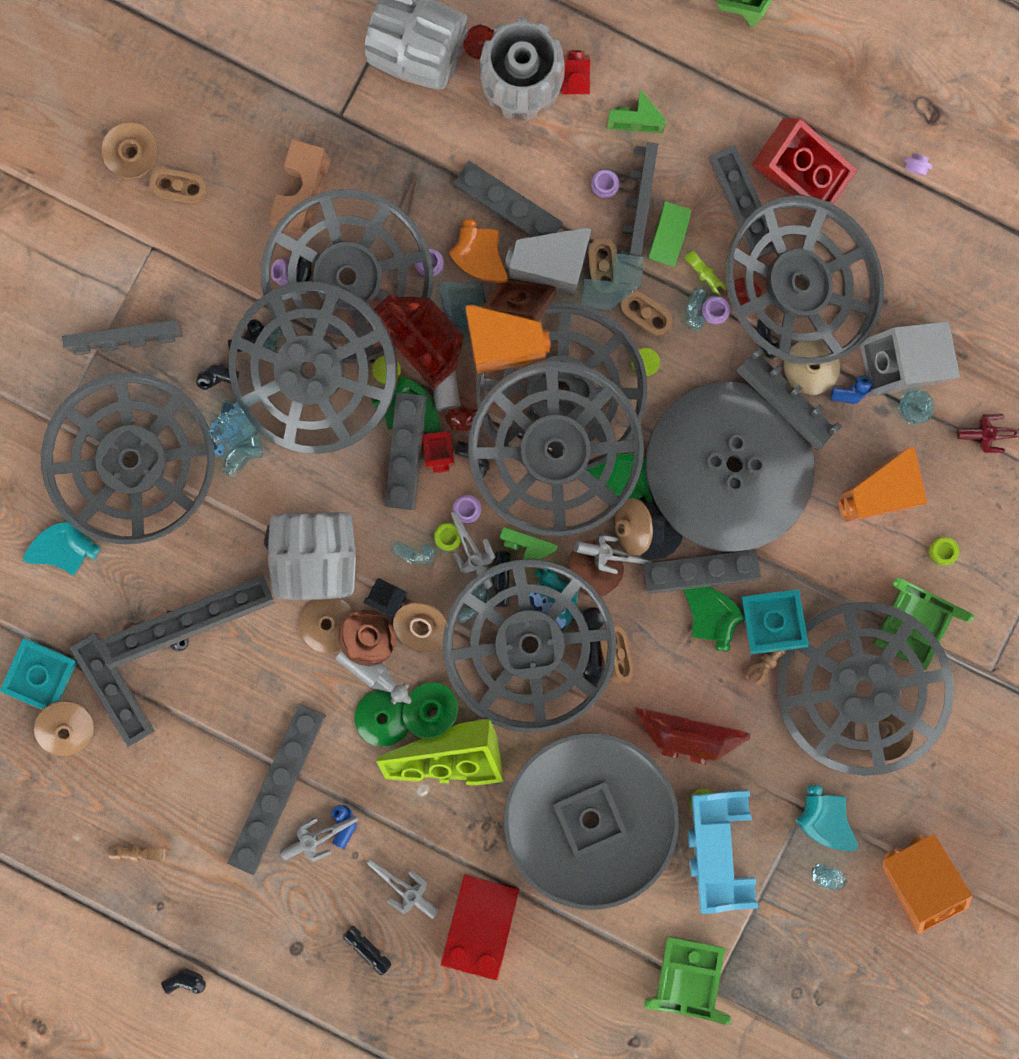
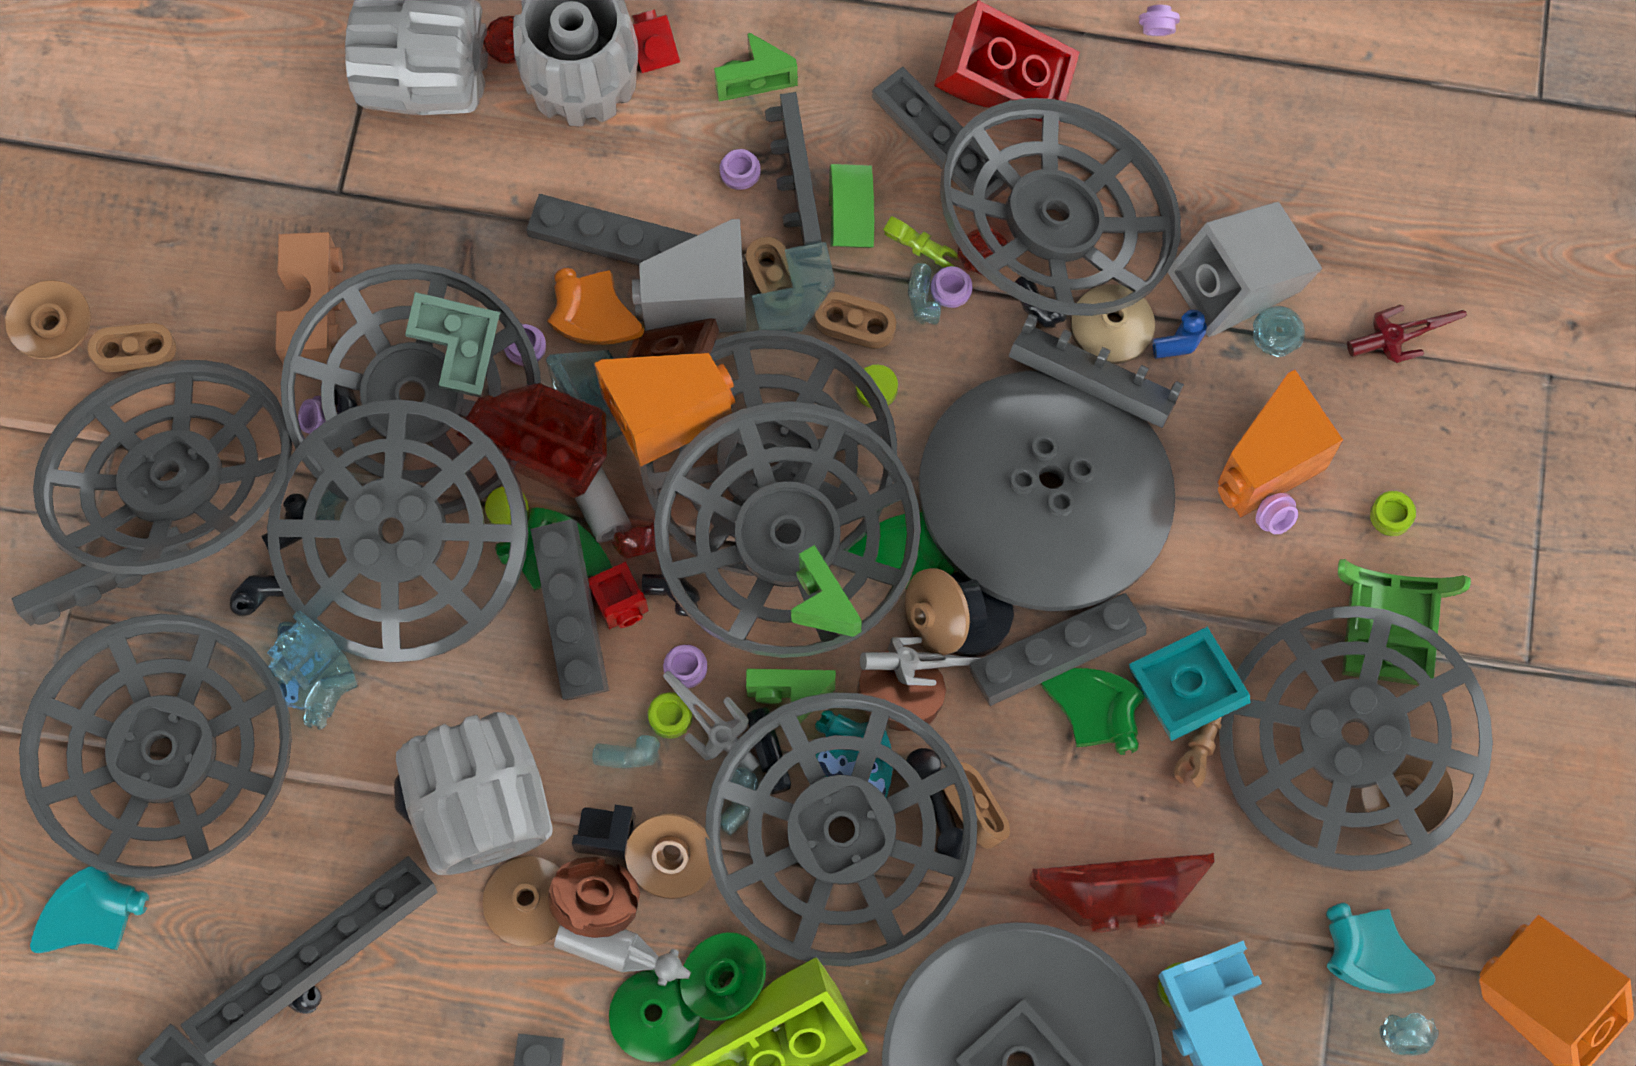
camera: 15 degrees left, 15 degrees down
(173, 267) = (149, 460): none -> dark grey dish
(391, 250) = (464, 330): none -> sand green plate
(566, 513) = (830, 606): none -> bright green slope
(869, 529) = (1277, 513): none -> lavender plate

